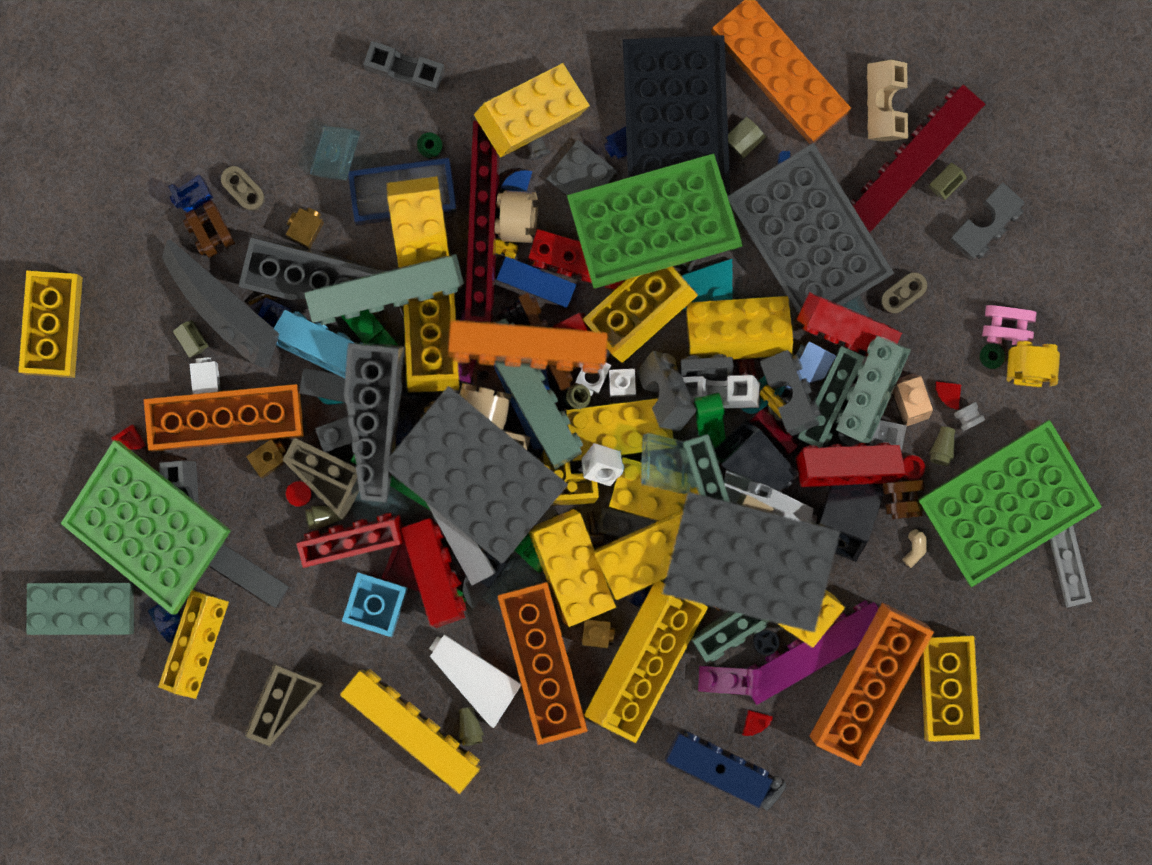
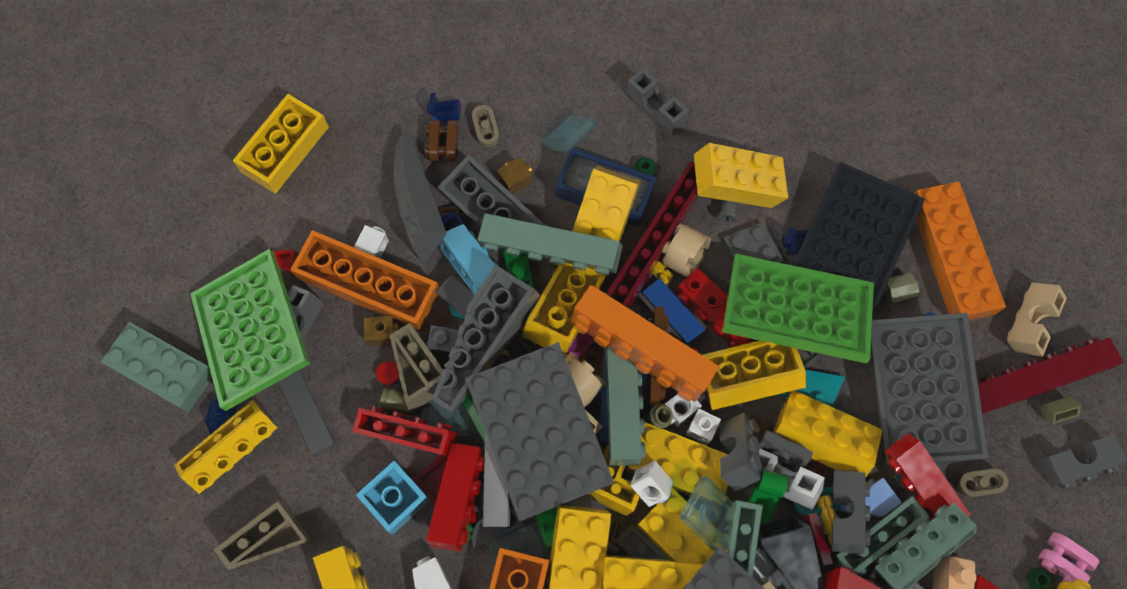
camera: 30 degrees right, 15 degrees down
(190, 339) = (378, 210): olive piece -> none
(517, 181) = (701, 226): blue tile -> none

